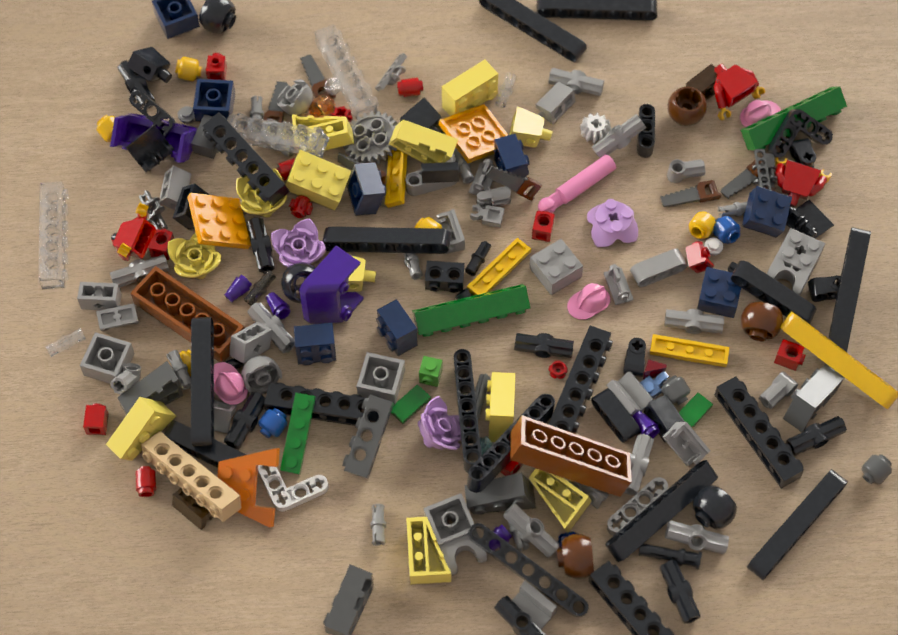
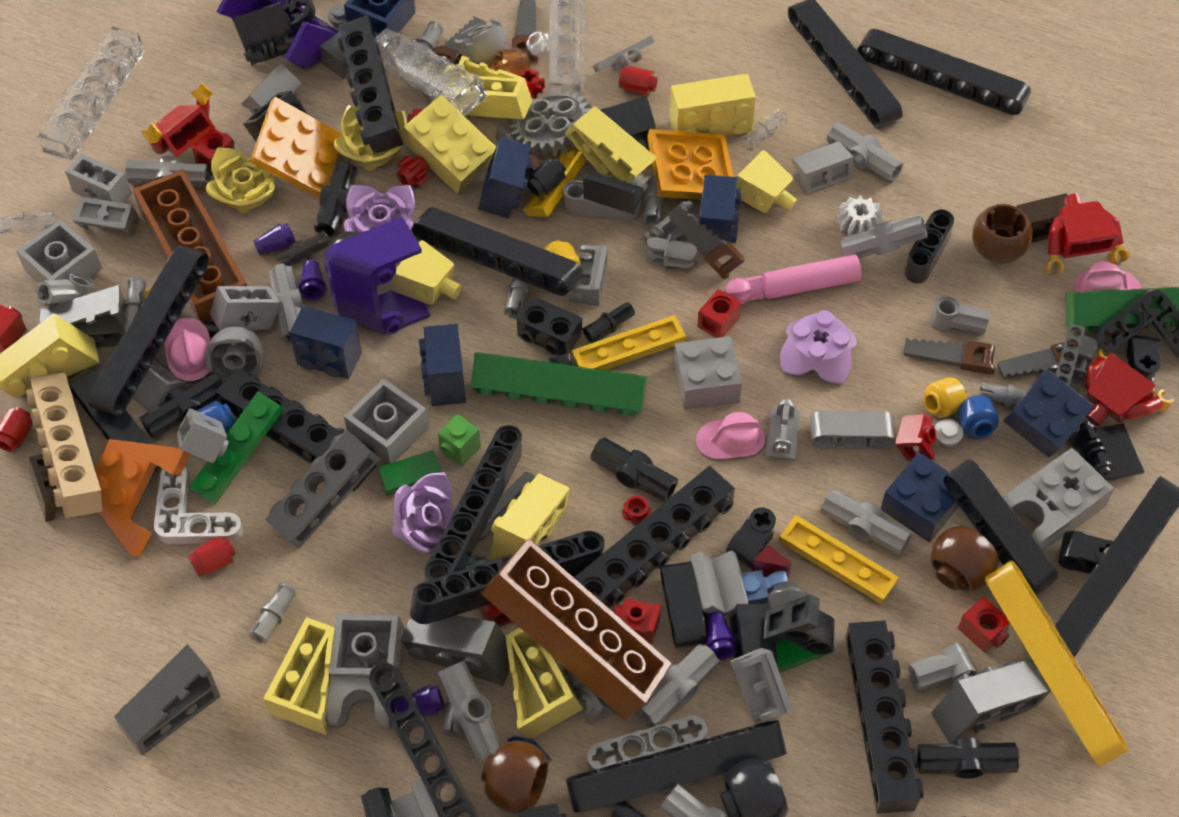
camera: 25 degrees right, 5 degrees down
(156, 214) = (230, 113): dark grey piece -> none
(278, 435) = (202, 436): none -> light grey brick
(321, 506) = (212, 556): none -> red brick
(392, 178) = (546, 177): none -> black brick
(491, 215) = (653, 275): light grey plate -> none
(599, 429) = (646, 617): none -> red brick
(691, 399) = (802, 625): none -> black tile

